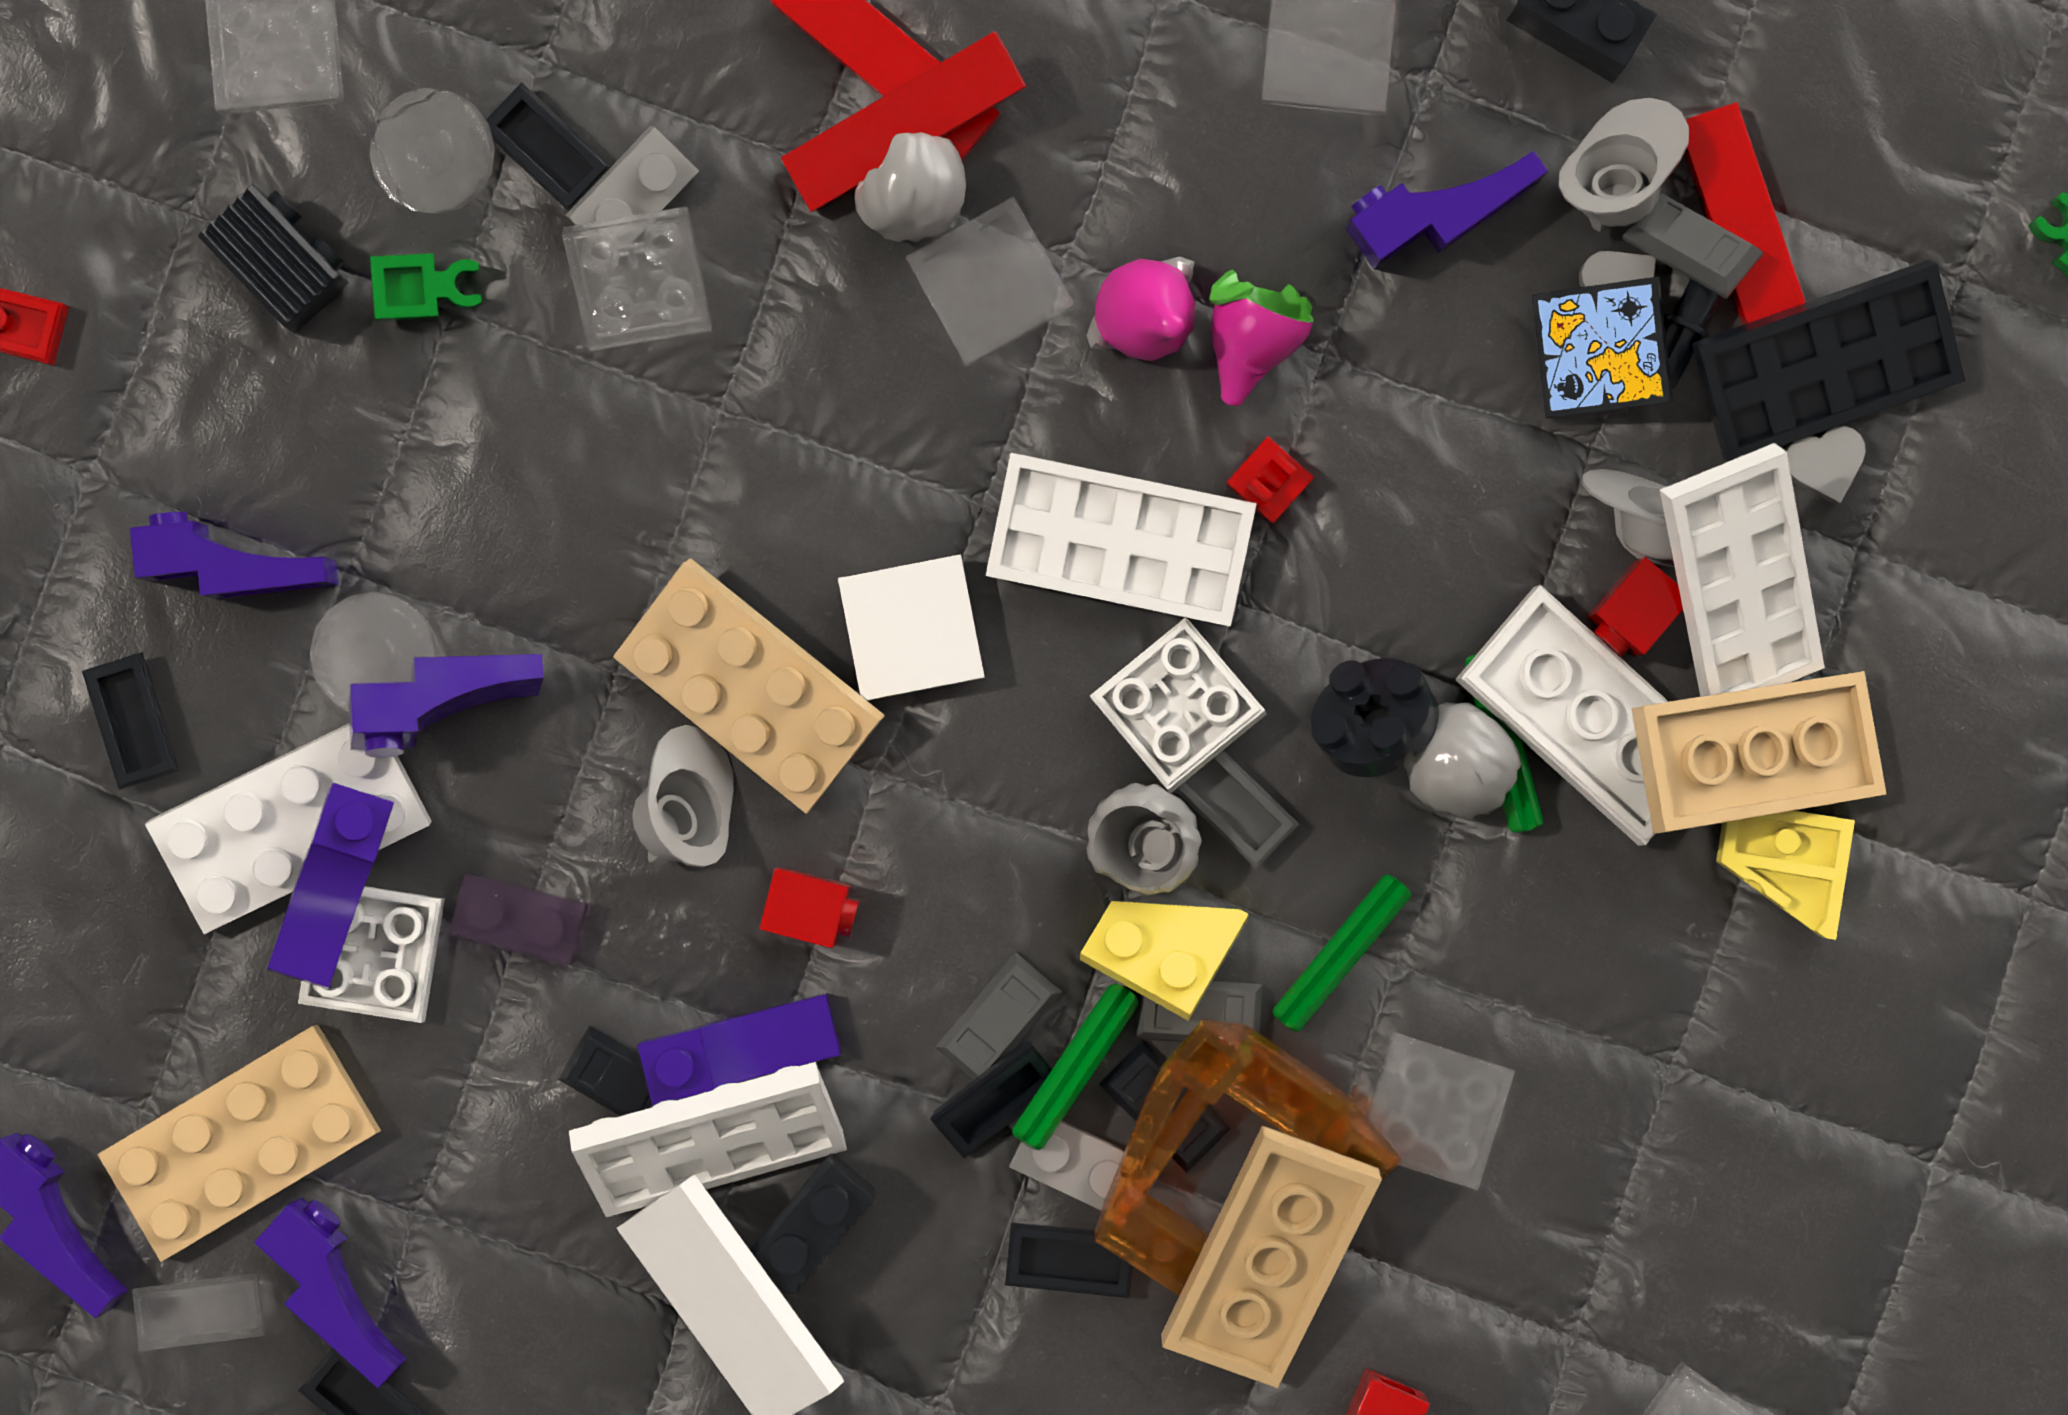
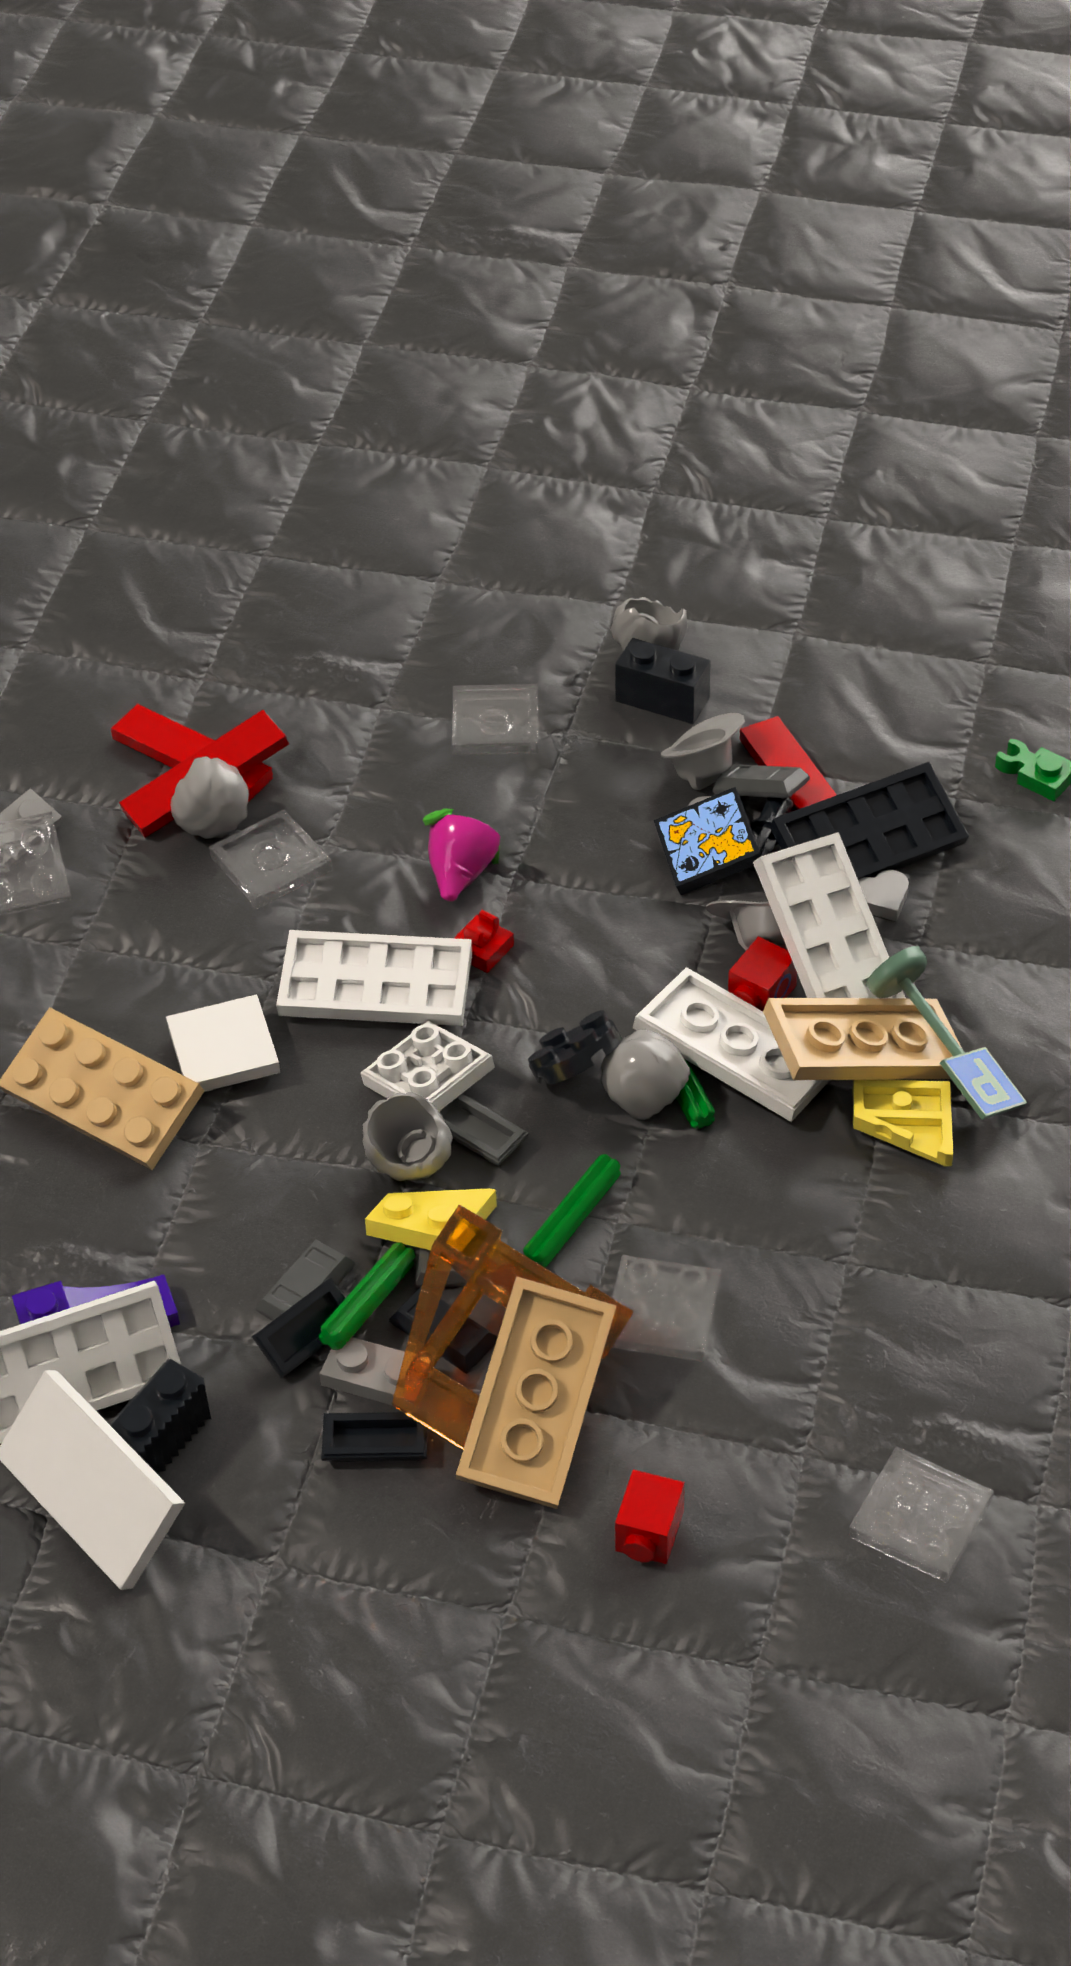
camera: 10 degrees left, 40 degrees down
(686, 801) = (49, 1158): light grey piece -> none
(808, 908) = (148, 1217): red brick -> none
(1144, 309) = (382, 855): dark pink hat -> none
(1397, 218) = (584, 785): dark purple slope -> none
(1896, 816) = (973, 1072): none -> sand green piece

